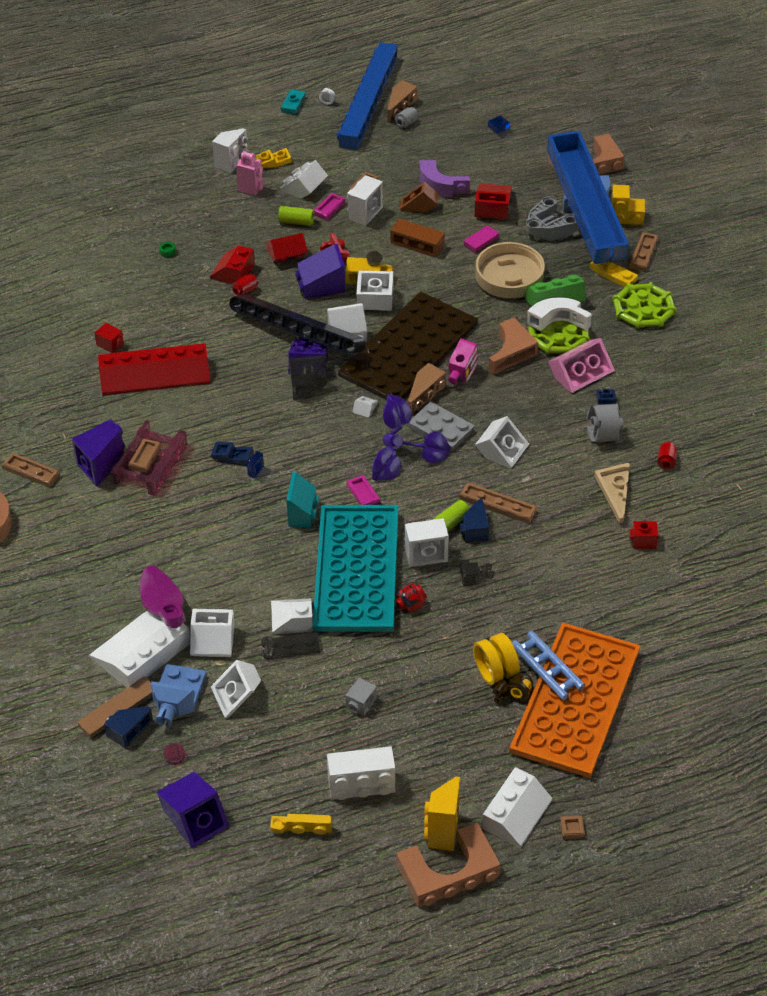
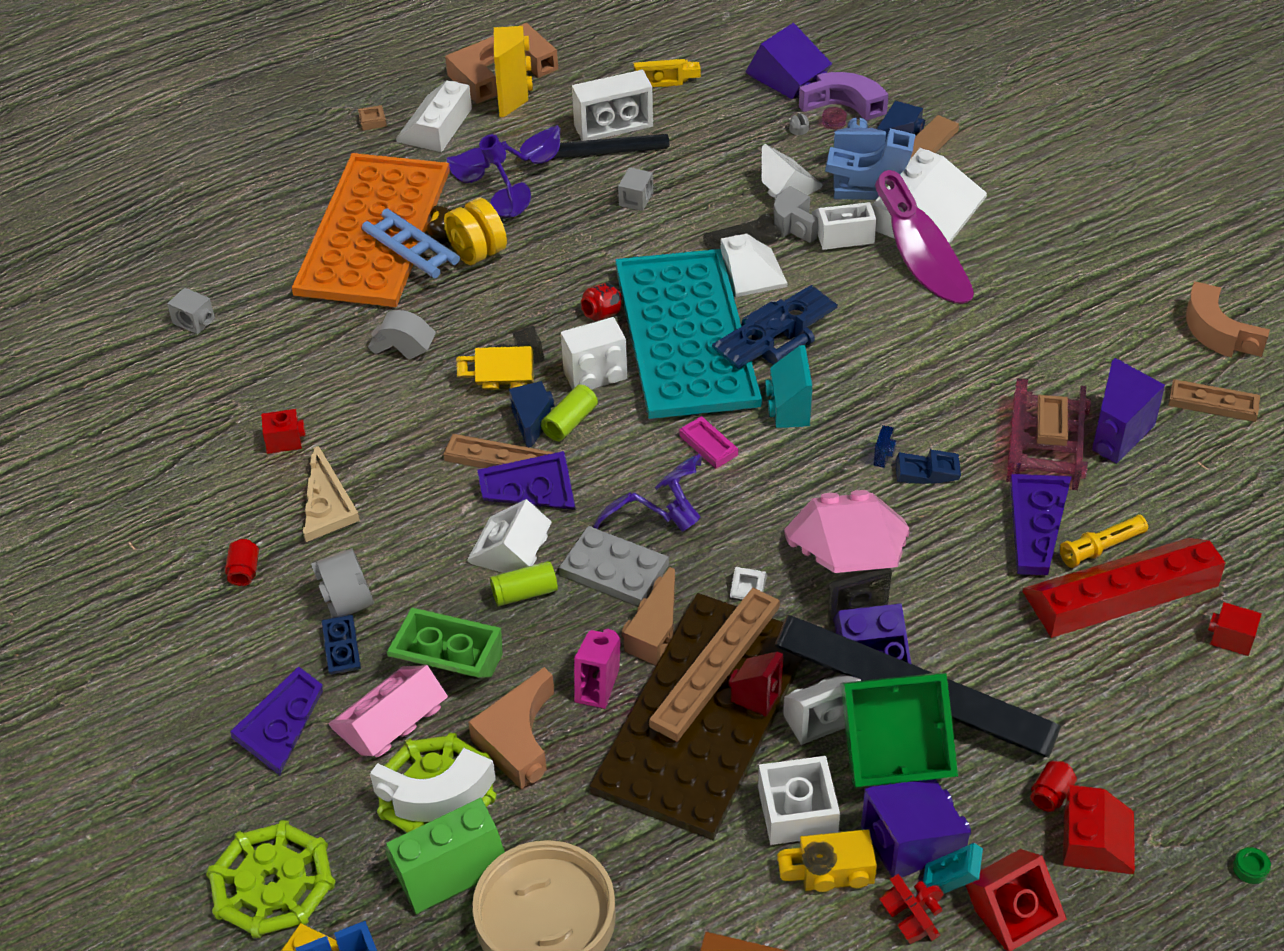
camera: 170 degrees right, 0 degrees up
(154, 773) = (845, 89): none -> medium lavender arch
(160, 392) = (1092, 544): none -> yellow pin
(168, 660) = (866, 168): none -> medium blue arch
(183, 411) = (1037, 516): none -> dark purple wing
(201, 752) = (799, 124): none -> light grey hinge
(248, 648) = (793, 215): none -> light grey brick
(294, 553) = (772, 320): none -> dark blue piece
(300, 398) = (849, 532): none -> bright pink wedge
(308, 246) = (954, 868): none -> teal plate
(315, 295) = (899, 729): none -> green container
(380, 328) = (758, 682): none -> dark red slope
(397, 351) = (714, 664): none -> medium nougat plate
(402, 755) = (613, 145): none -> black axle
(462, 706) = (514, 199): none -> dark purple plant
(486, 478) = (538, 479): none -> dark purple wing
(487, 416) = (523, 583): none -> lime pin
(493, 552) = (498, 366): none -> yellow brick
(546, 378) = (448, 643): none -> bright green slope
(560, 585) = (404, 331): none -> light grey brick
(642, 370) = (279, 719): none -> dark purple wing
(715, 640) = (191, 310): none -> light grey brick

